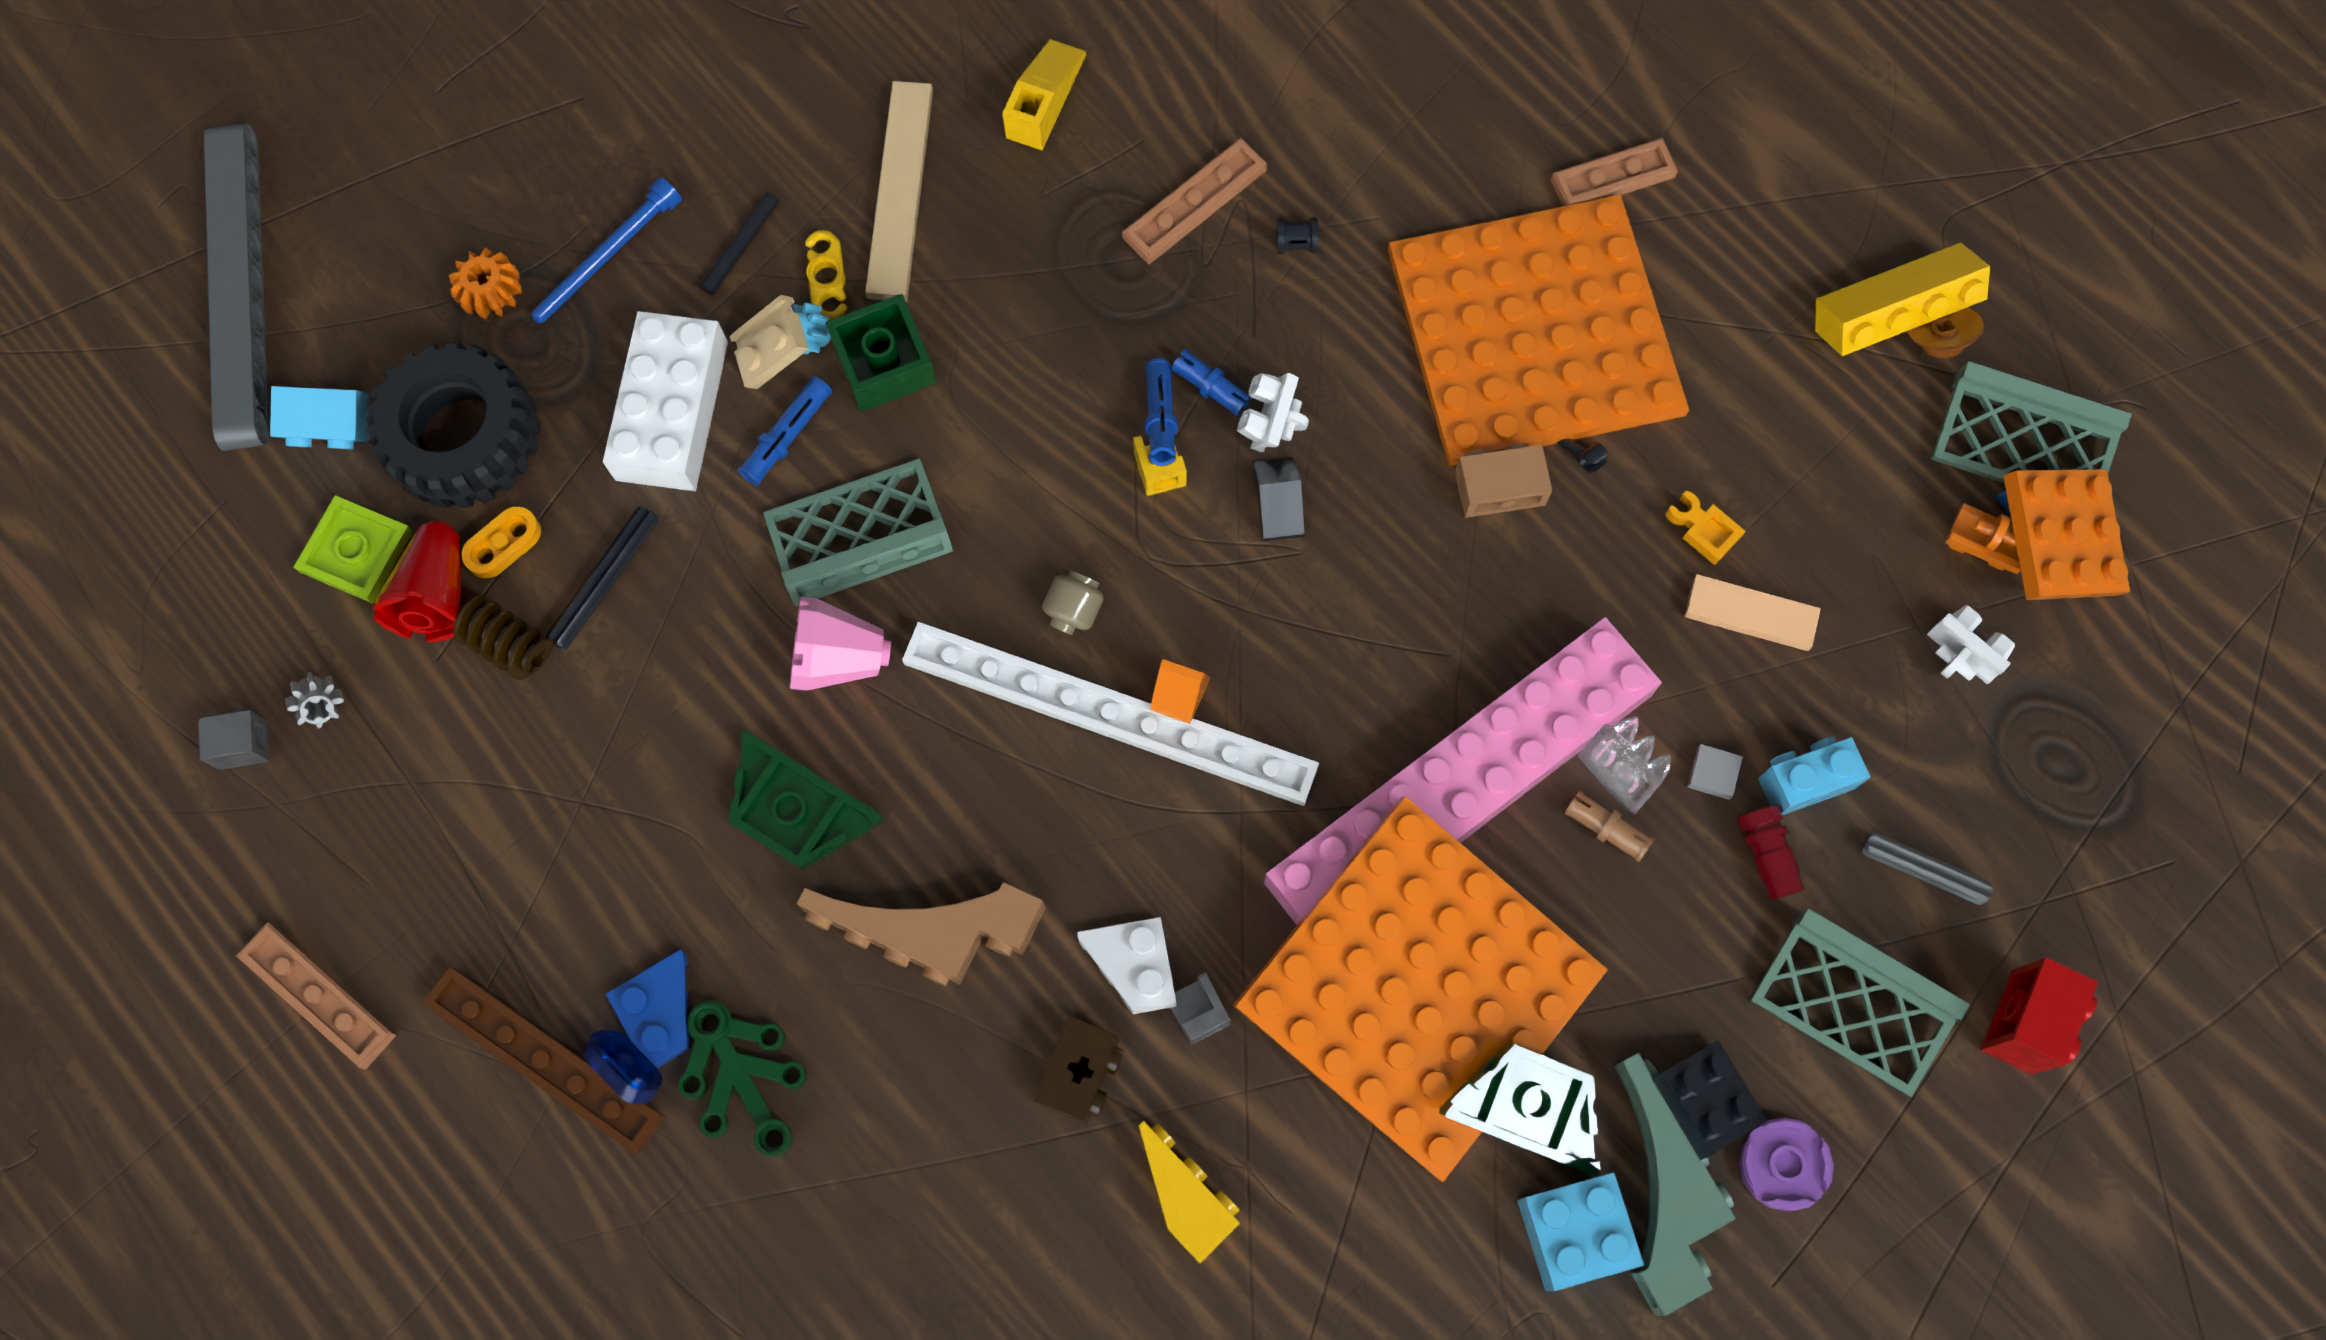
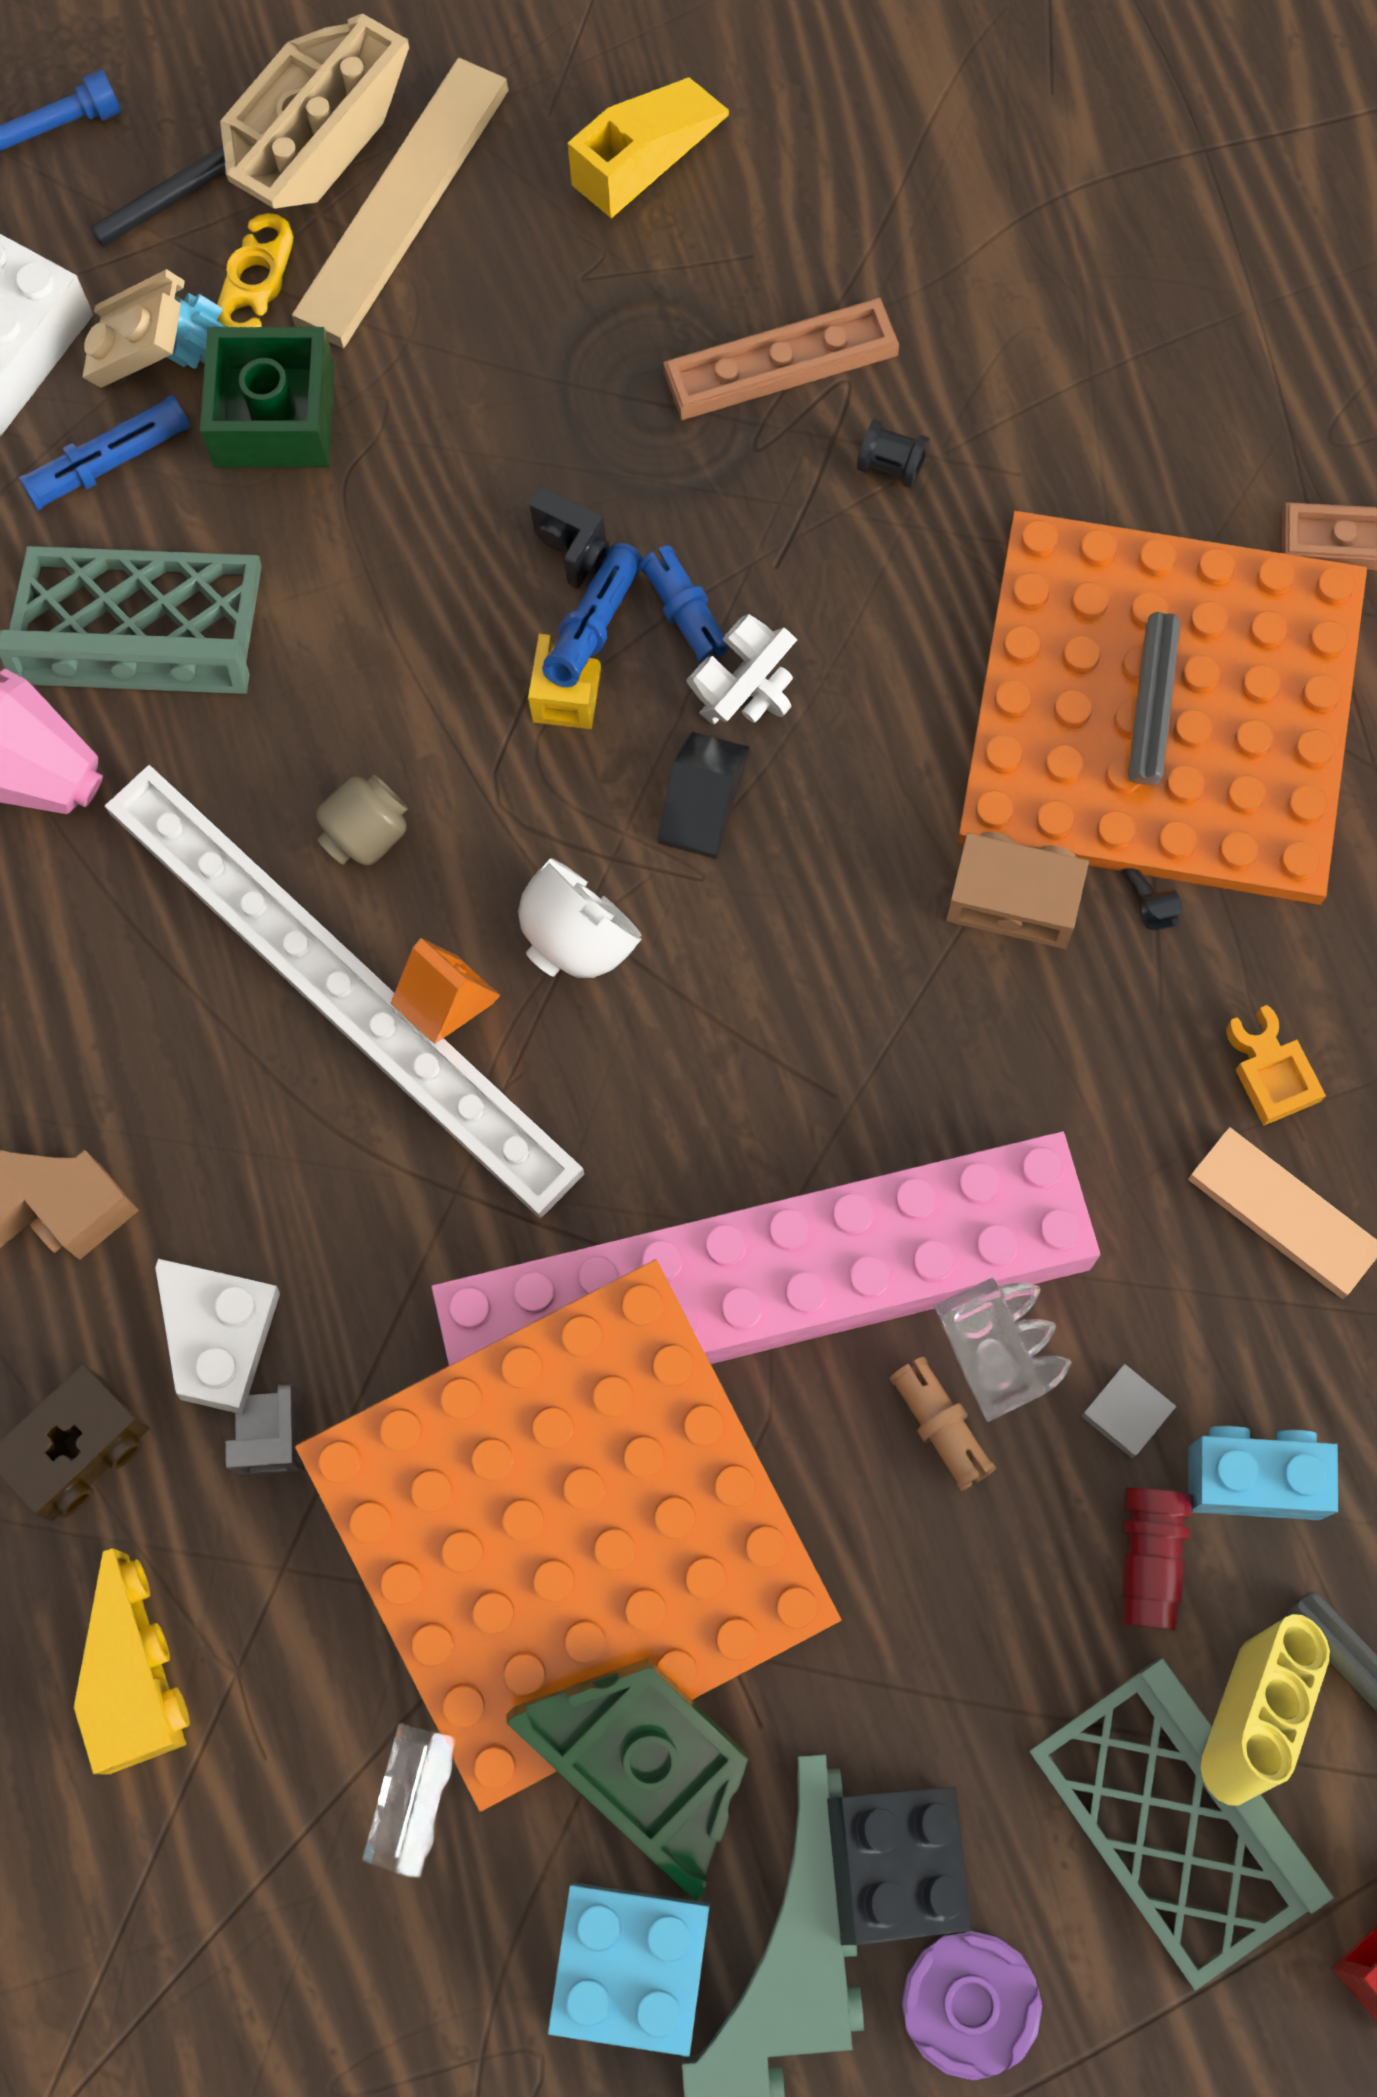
camera: 25 degrees right, 0 degrees up
(816, 152) = (312, 111): none -> tan wedge
(1116, 360) = (570, 526): none -> black bracket
(1241, 614) = (572, 925): none -> white cylinder
(1397, 1193) = (409, 1800): none -> clear plate
(1533, 327) = (1154, 699): none -> dark grey axle
(1882, 912) = (1265, 1710): none -> light yellow beam

